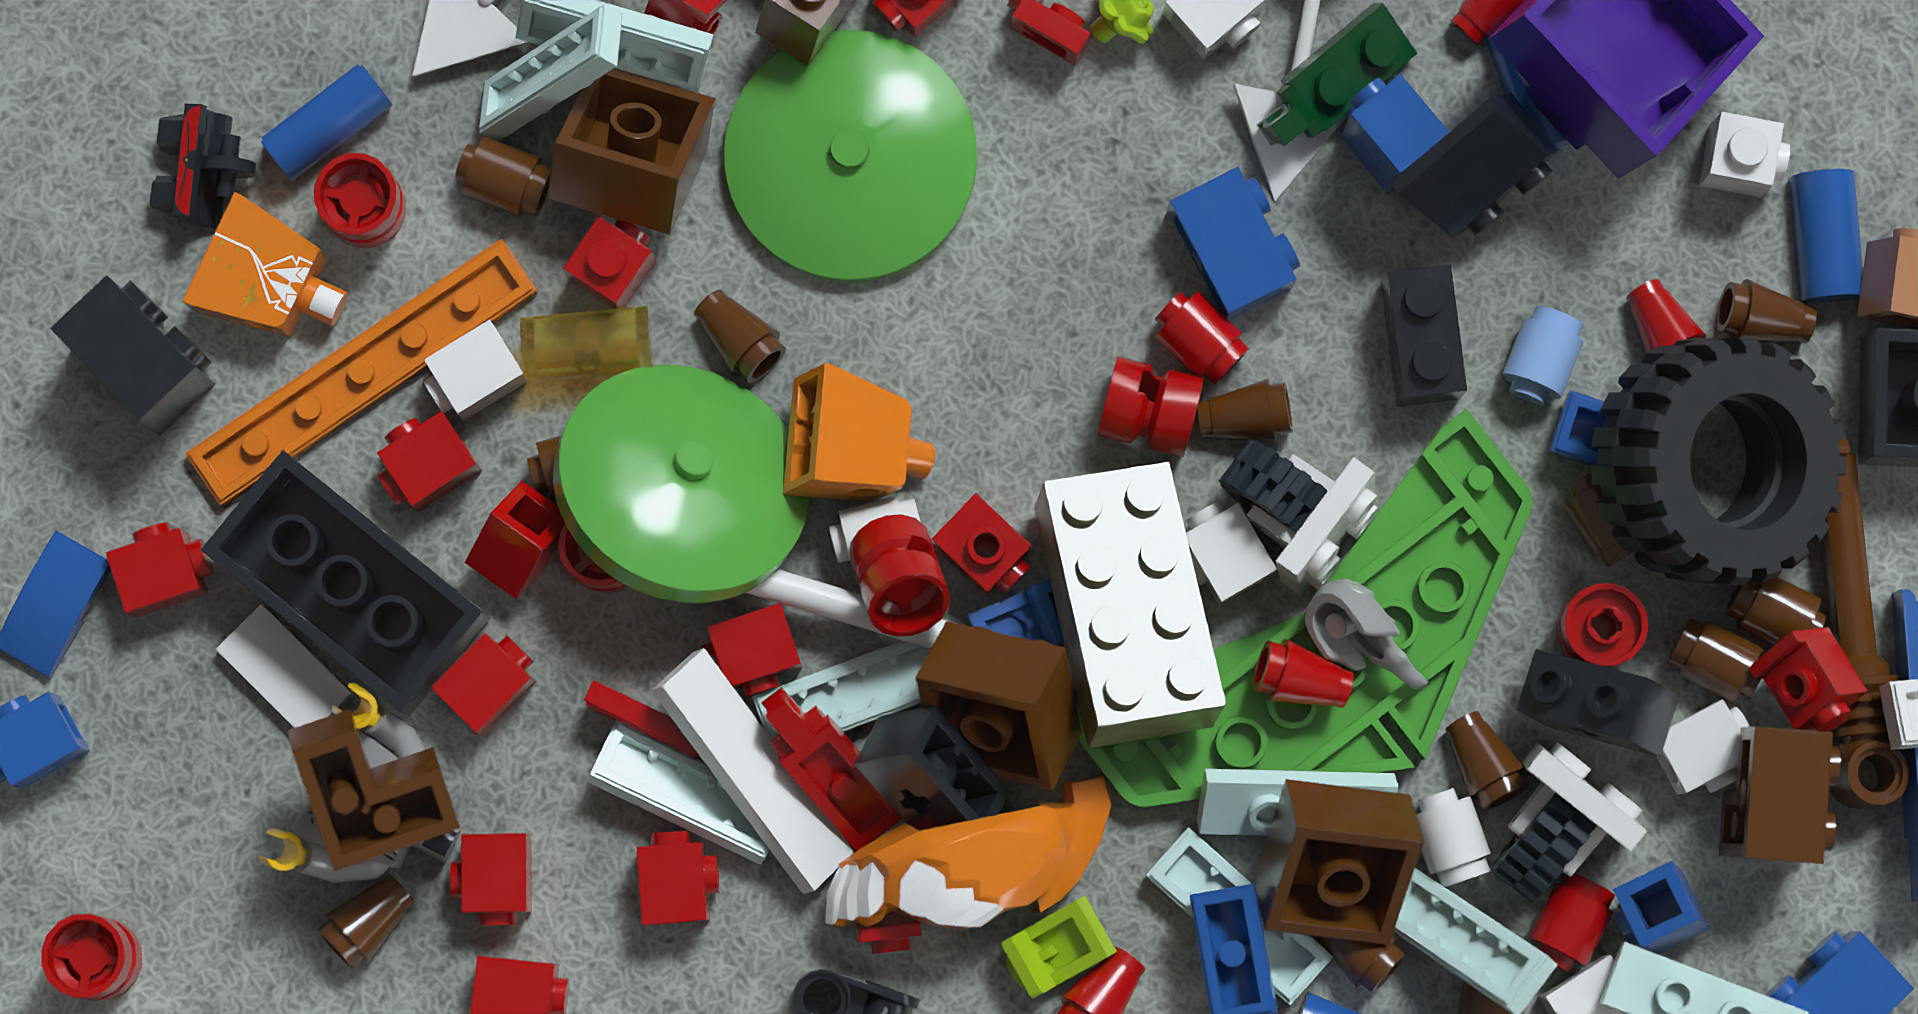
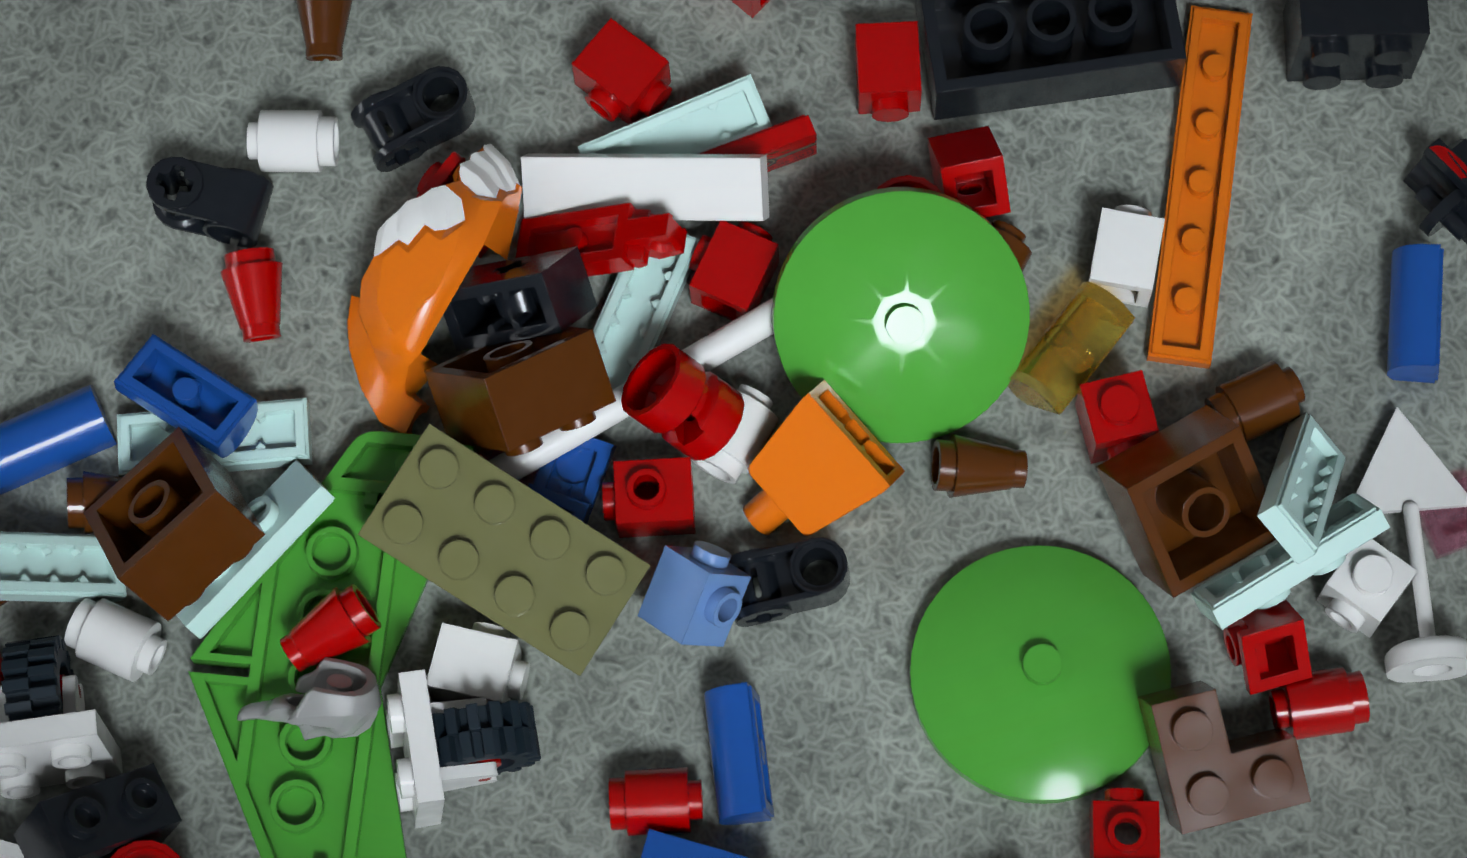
camera: 140 degrees right, 10 degrees down
(262, 274) = (1339, 172): orange torso -> none
(360, 200) = (1336, 268): red wheel -> none
(425, 461) = (1090, 166): red brick -> none
(956, 395) = (782, 582): none -> black piece
(1029, 440) = (695, 594): none -> medium blue brick
(1057, 947) = (318, 289): lime bracket -> none
(1112, 310) = (738, 754): none -> blue brick
(1150, 406) = (616, 723): red wheel -> none
(1247, 413) = (563, 786): reddish brown cone -> none
(1485, 762) = (145, 716): reddish brown cone -> none

